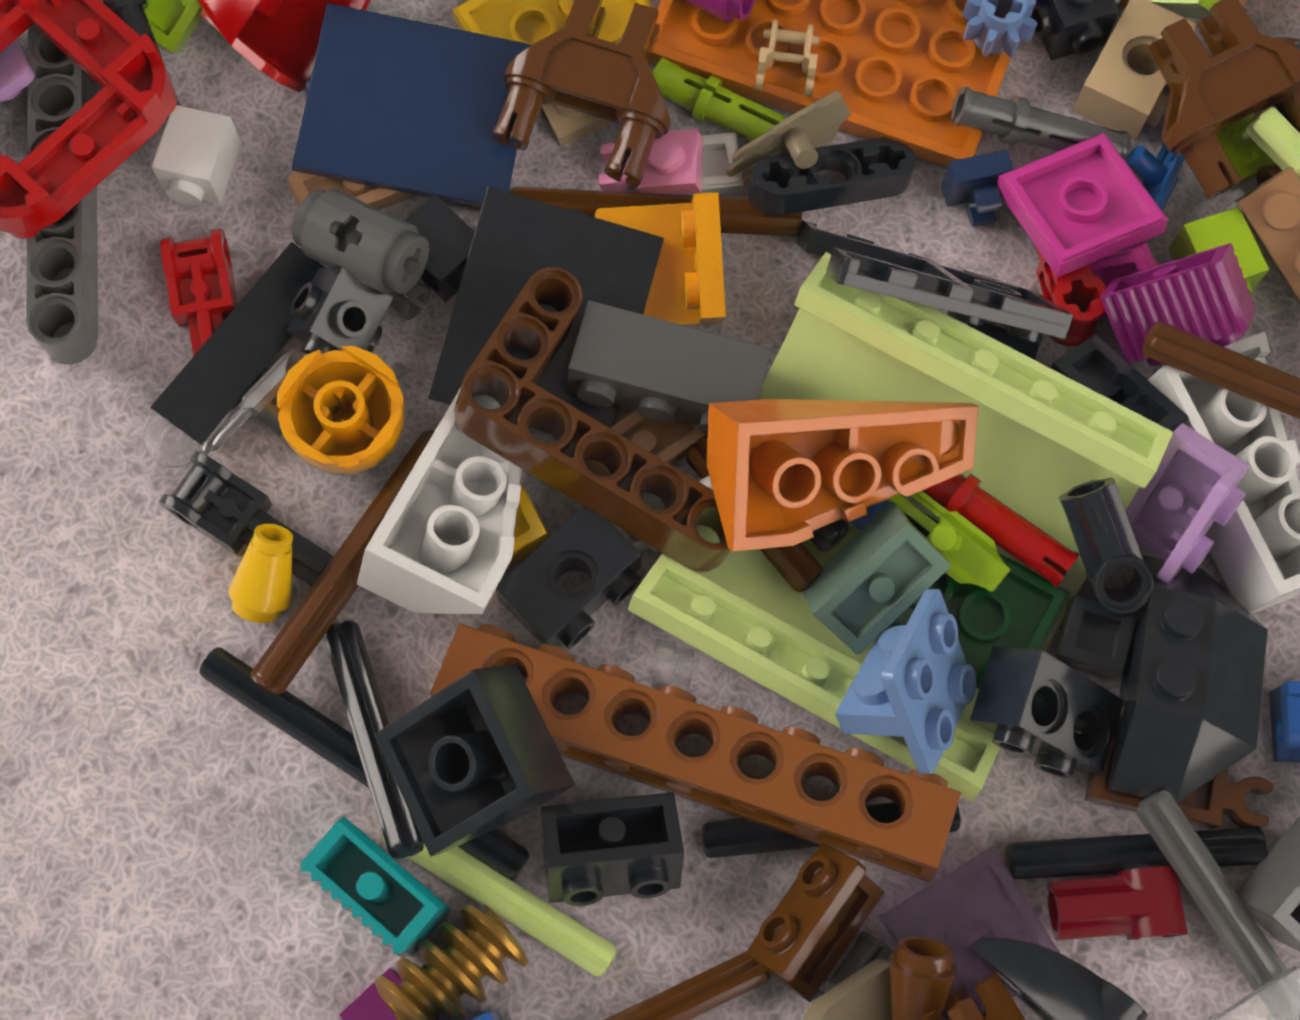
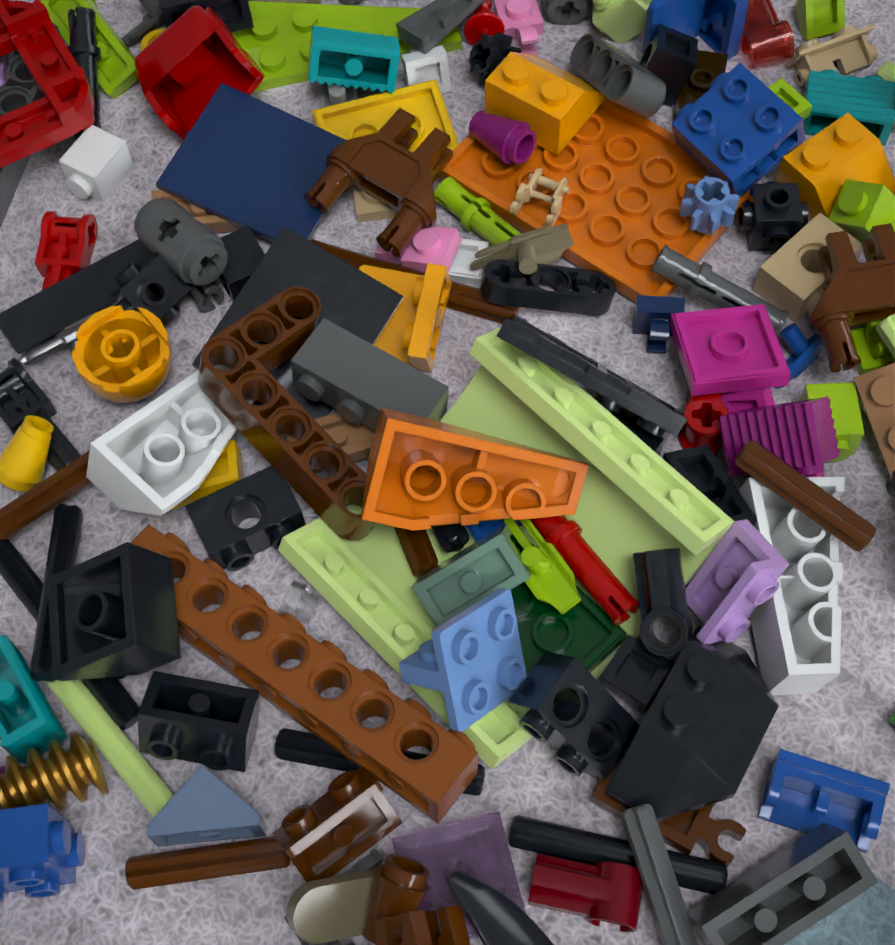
camera: 20 degrees right, 10 degrees down
(657, 948) = (204, 813): none -> sand blue slope

